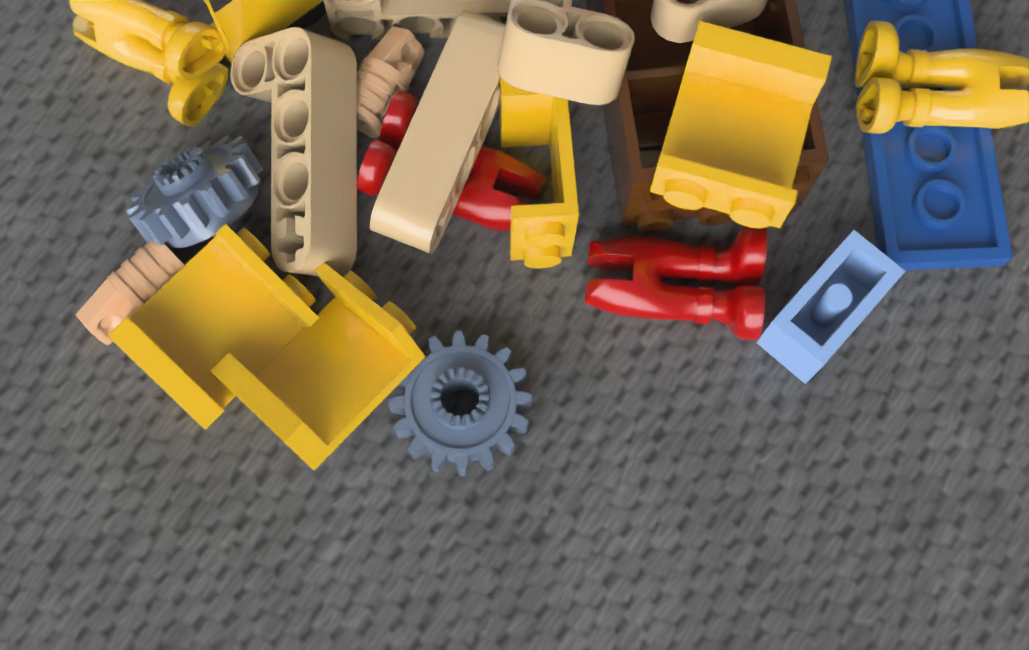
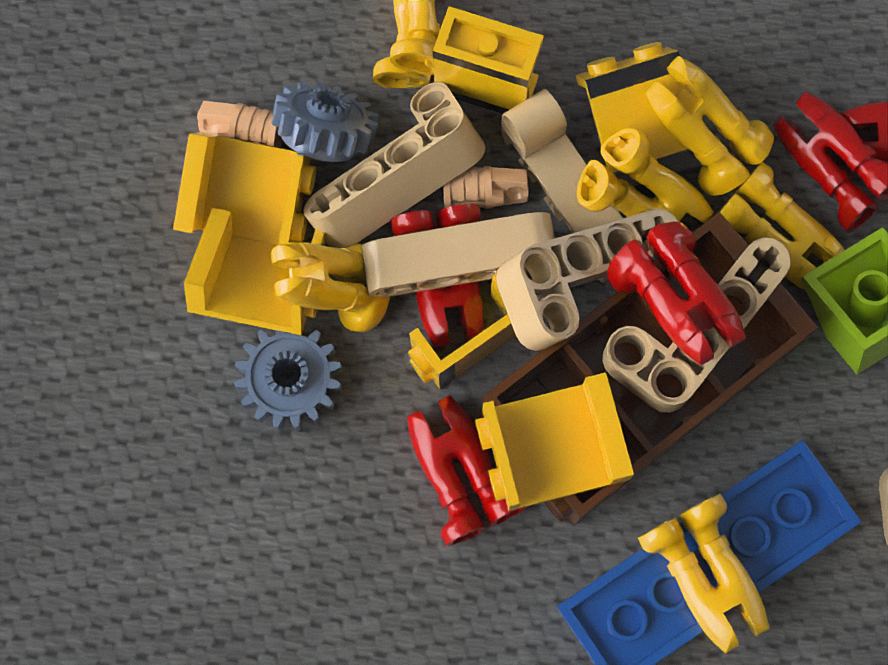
camera: 65 degrees right, 5 degrees up
(389, 282) = (314, 289): none -> yellow piece
(830, 306) = (495, 580): light blue brick -> none

